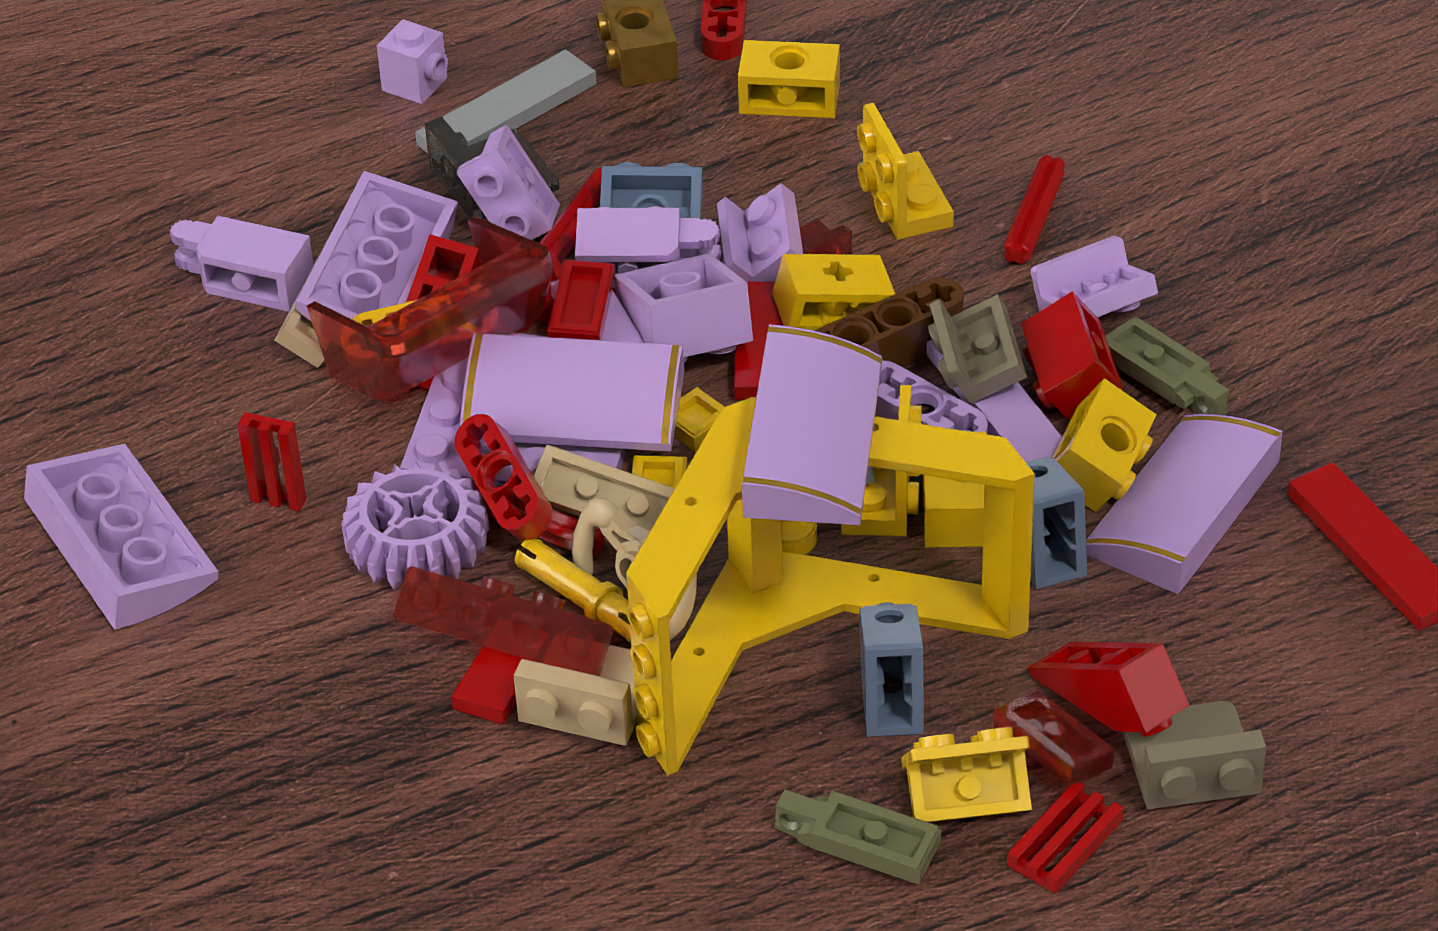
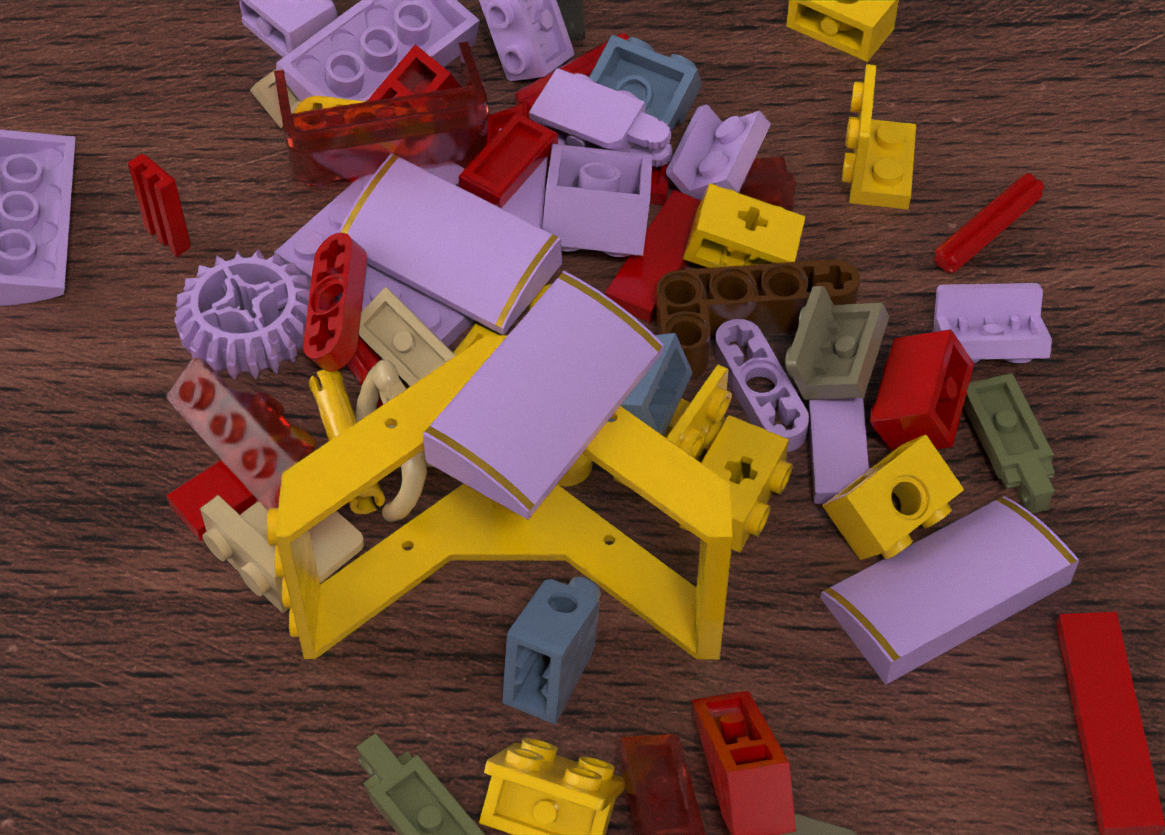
camera: 25 degrees right, 10 degrees up
(1061, 515) = (795, 529): sand blue torso -> none

